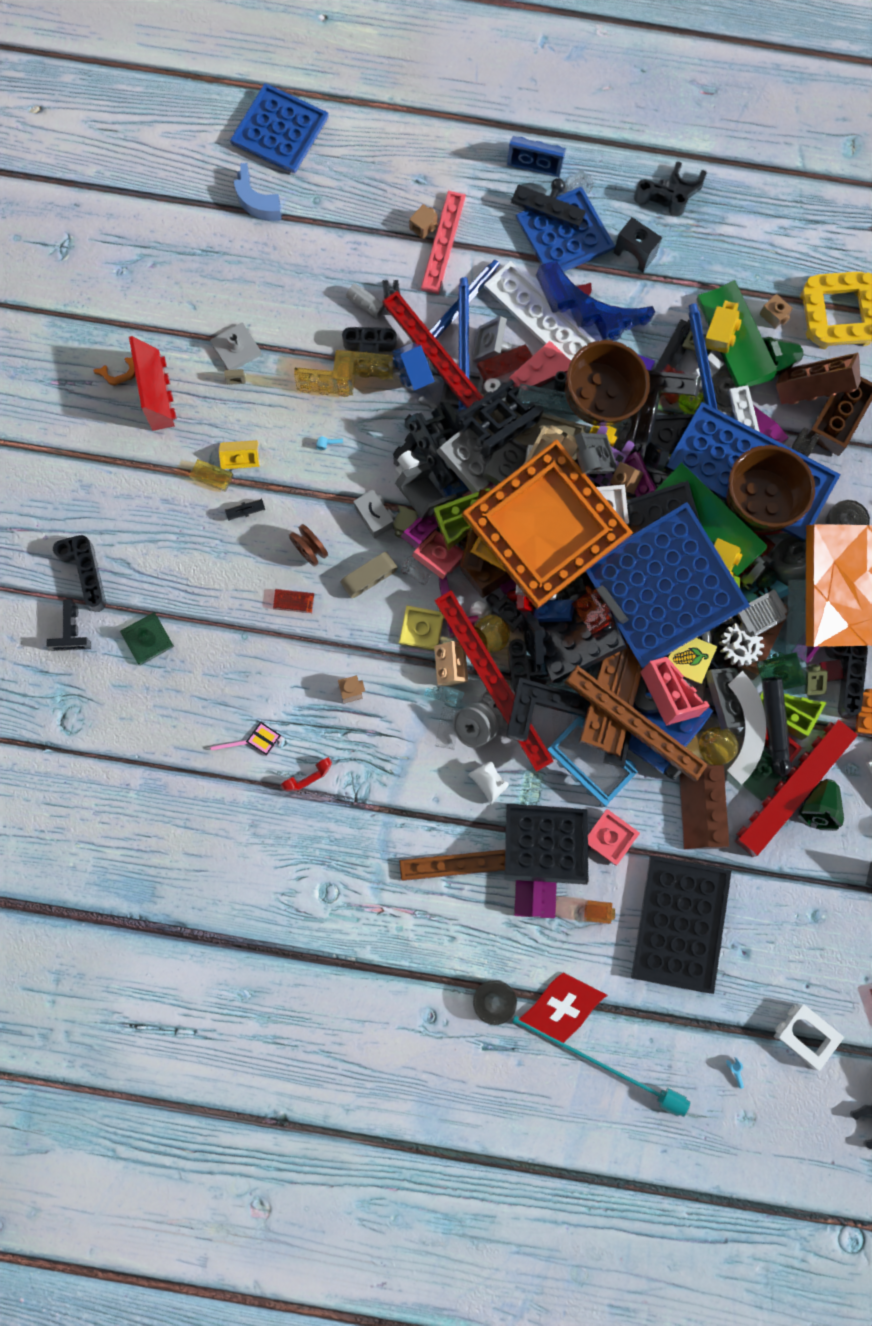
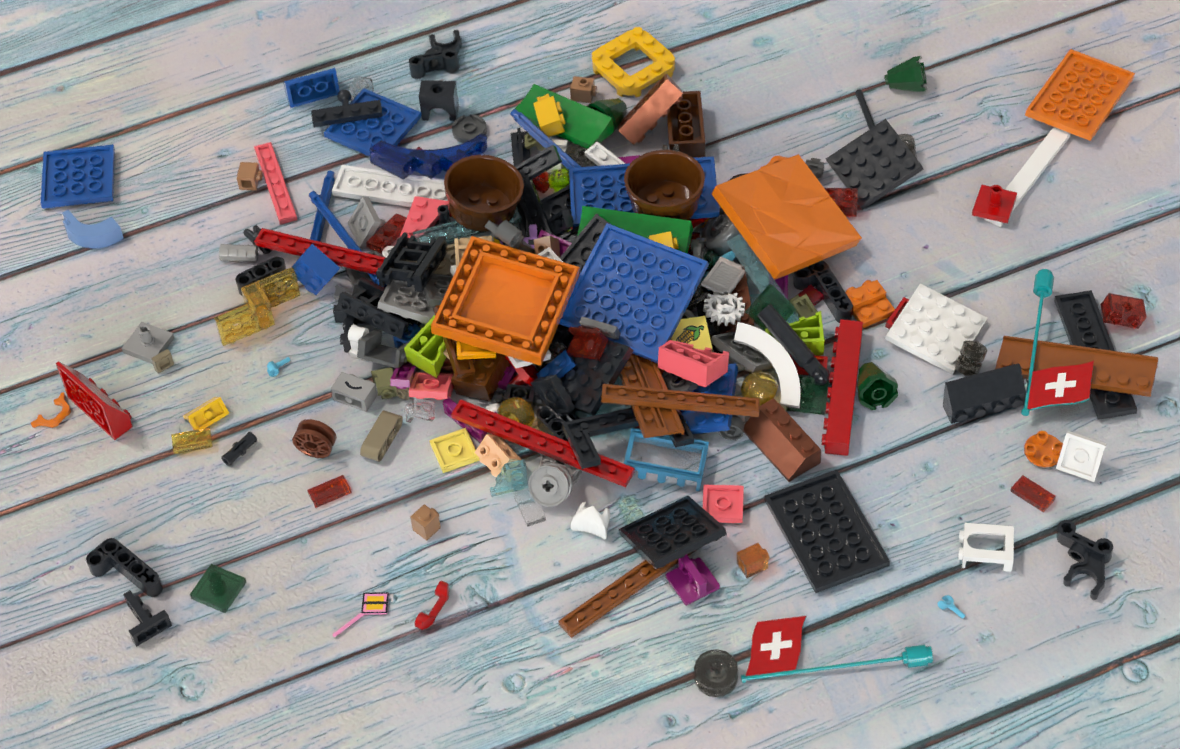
camera: 25 degrees left, 25 degrees down
(648, 289) = (468, 127): none -> dark grey tile

